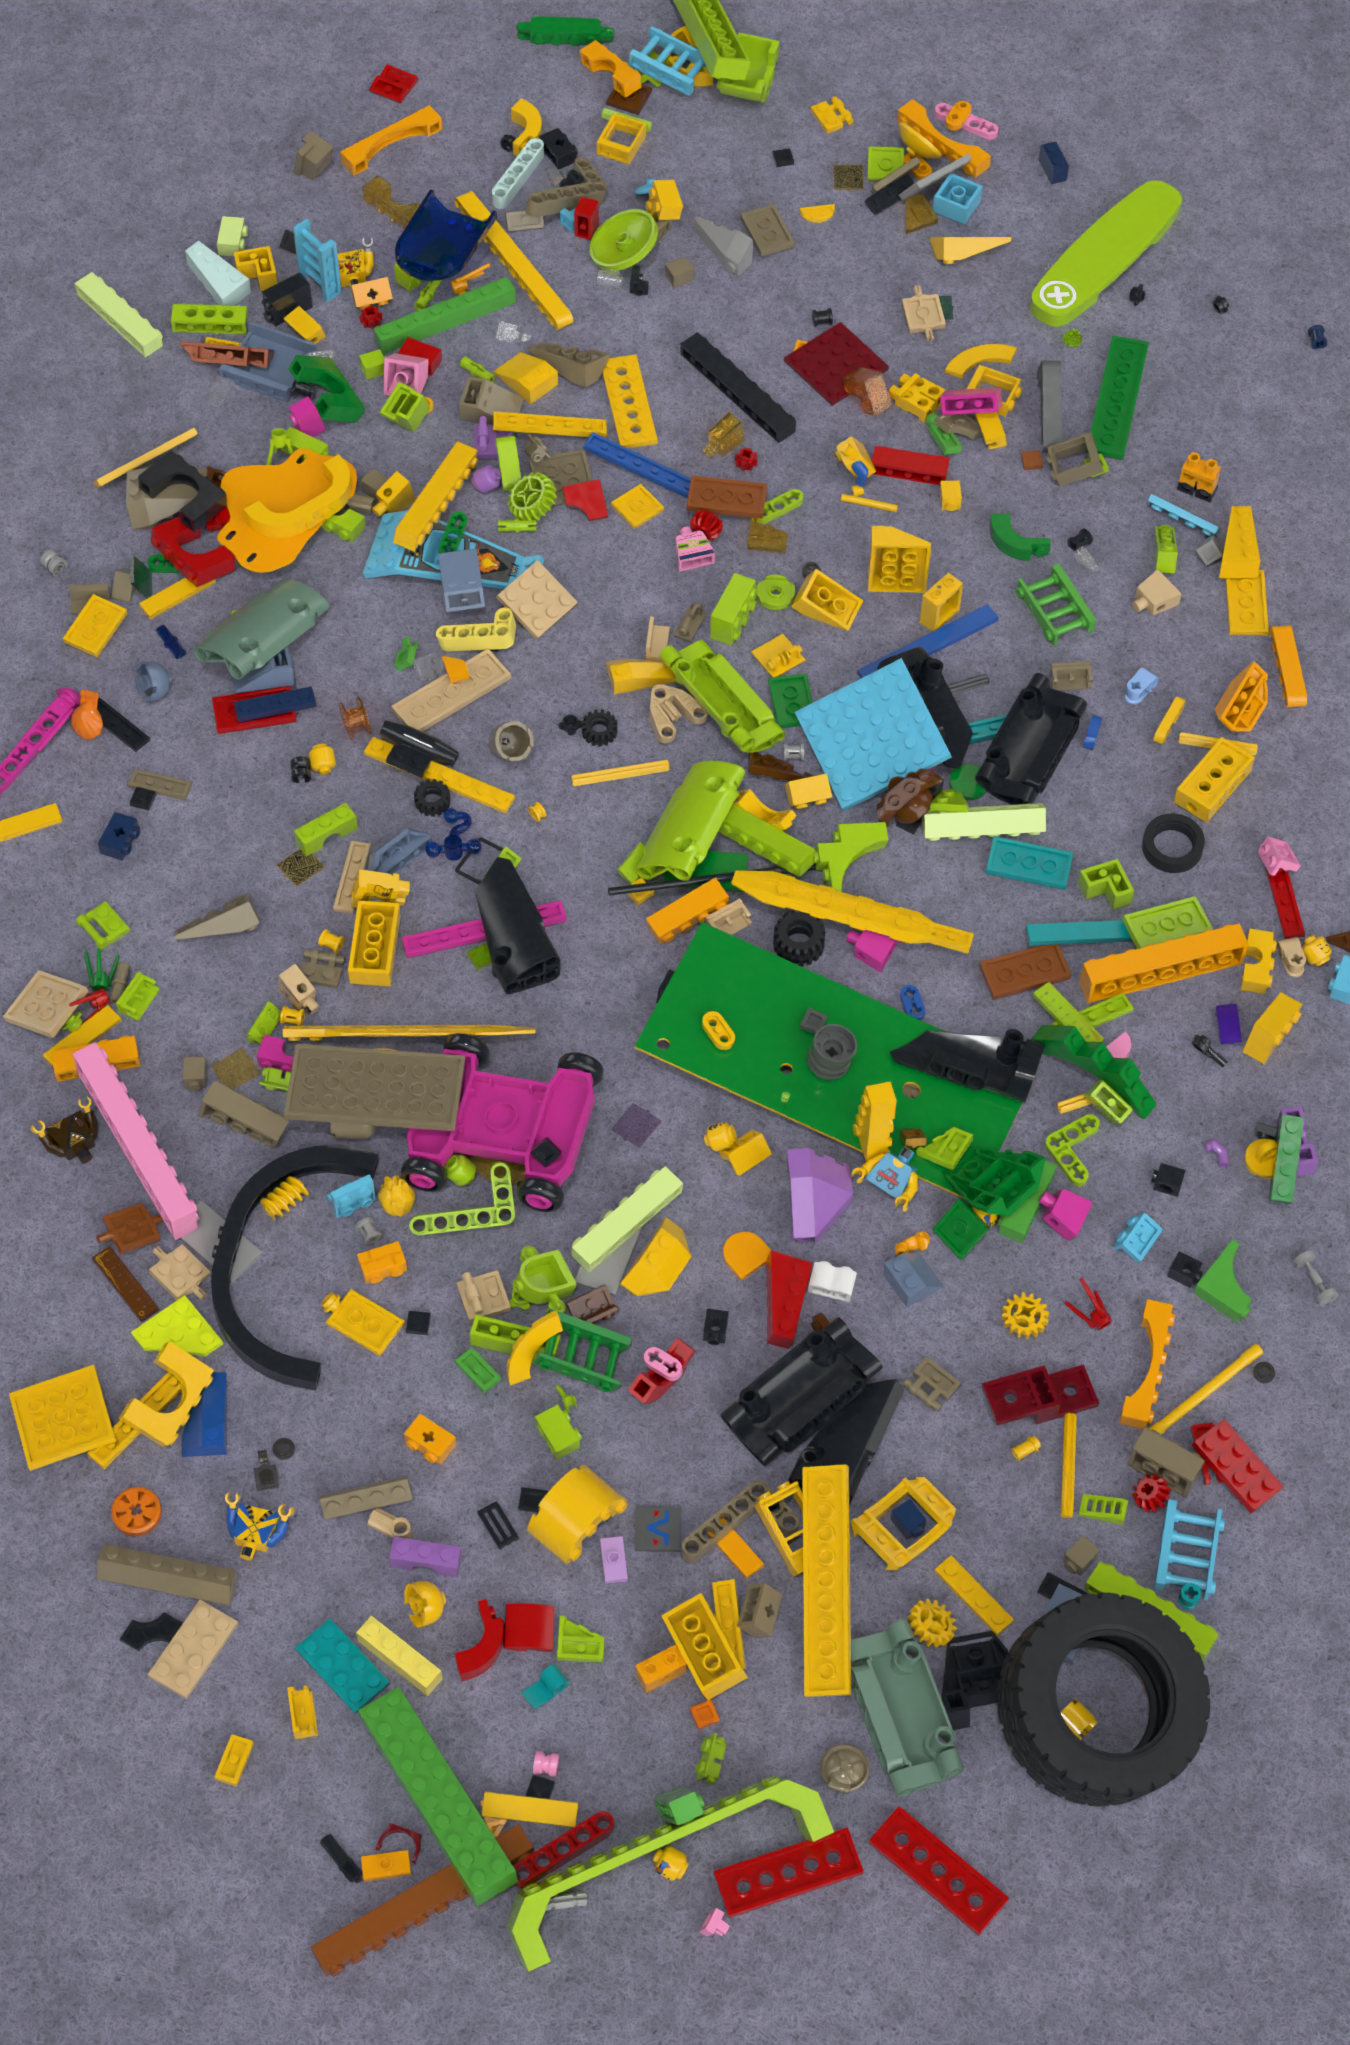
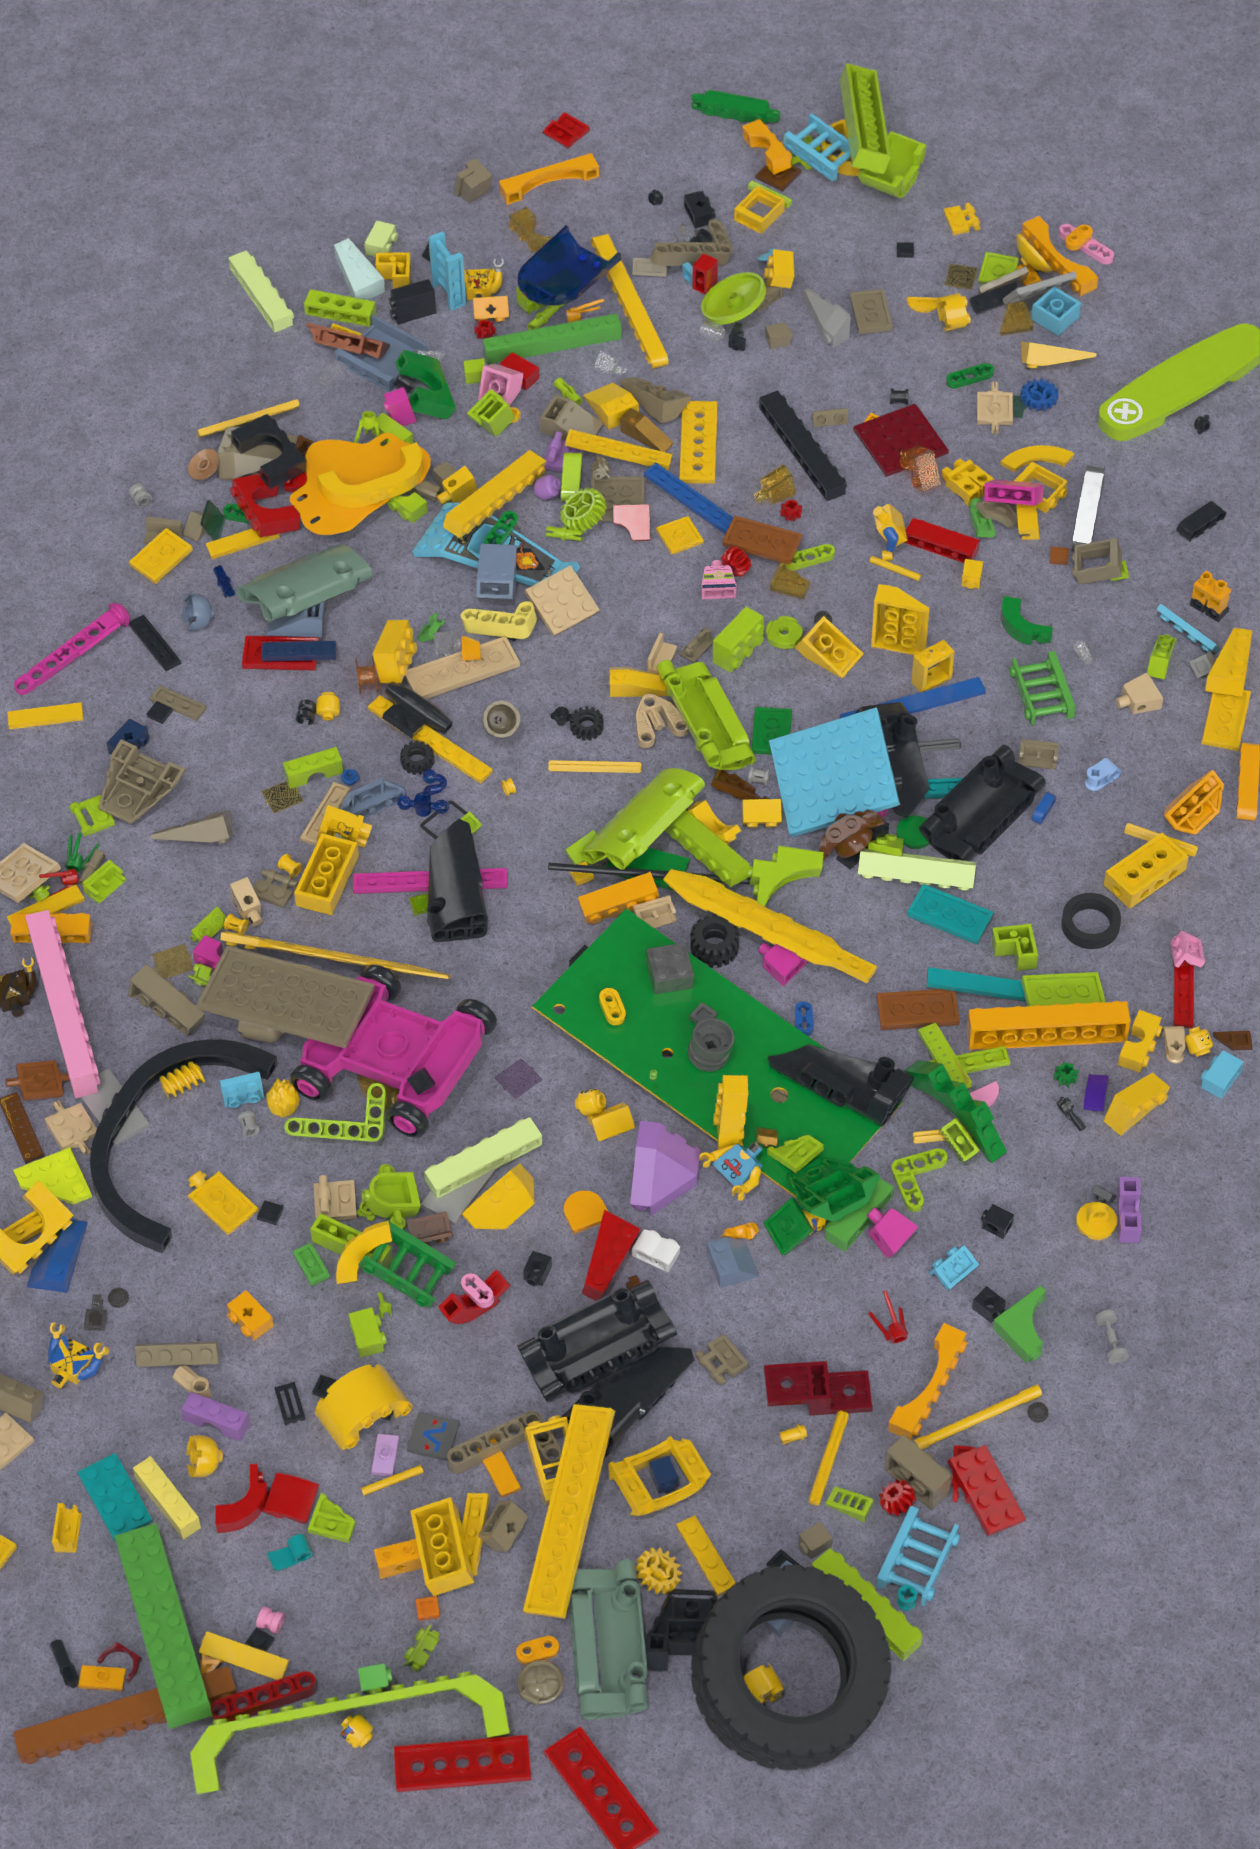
camera: 15 degrees right, 5 degrees down
(86, 718) = (128, 634): orange animal -> none
(109, 512) = (203, 464): none -> medium nougat dish
(142, 881) = (136, 783): none -> dark tan wedge
(194, 1073) = (134, 956): dark tan brick -> none
(305, 325) = (423, 327): yellow hinge -> none
(366, 836) = (349, 780): none -> blue plate
(379, 687) = (394, 651): none -> yellow brick
(382, 1262) = (252, 1153): light orange brick -> none
(460, 1170) = (345, 1086): lime head -> none
(518, 173) = (655, 225): light aqua beam -> none
(530, 119) = (679, 177): yellow arch -> none
(567, 1900) = (252, 1743): light grey axle -> none
(569, 399) = (643, 430): none -> pearl gold slope
(629, 1584) = (392, 1480): none -> yellow bar
(714, 1923) = (381, 1793): bright pink tile -> none
(757, 352) = (830, 417): none -> dark tan hinge
(766, 978) = (669, 968): none -> flat silver brick
(778, 655) = (770, 689): yellow hinge -> none
(830, 1733) = (537, 1649): none -> light orange plate
(853, 216) = (953, 311): none -> yellow brick
(890, 276) = (975, 370): none -> green beam
(964, 291) = (1039, 394): none -> blue gear
(1021, 1323) = (819, 1322): yellow gear -> none
(1053, 162) = (1157, 293): dark blue brick -> none
(1072, 338) = (1129, 453): clear neon green plate -> none
(1080, 539) = (1087, 630): black bush -> none
(1118, 396) = (1157, 512): green plate -> none
(1164, 397) = (1200, 520): none -> black beam
(1170, 718) = (1119, 810): yellow beam -> none
(1193, 1010) = (1066, 1074): none -> green gear
(1221, 1151) = (1055, 1204): medium lavender arm -> none
(1287, 1159) = (1110, 1223): arch -> none

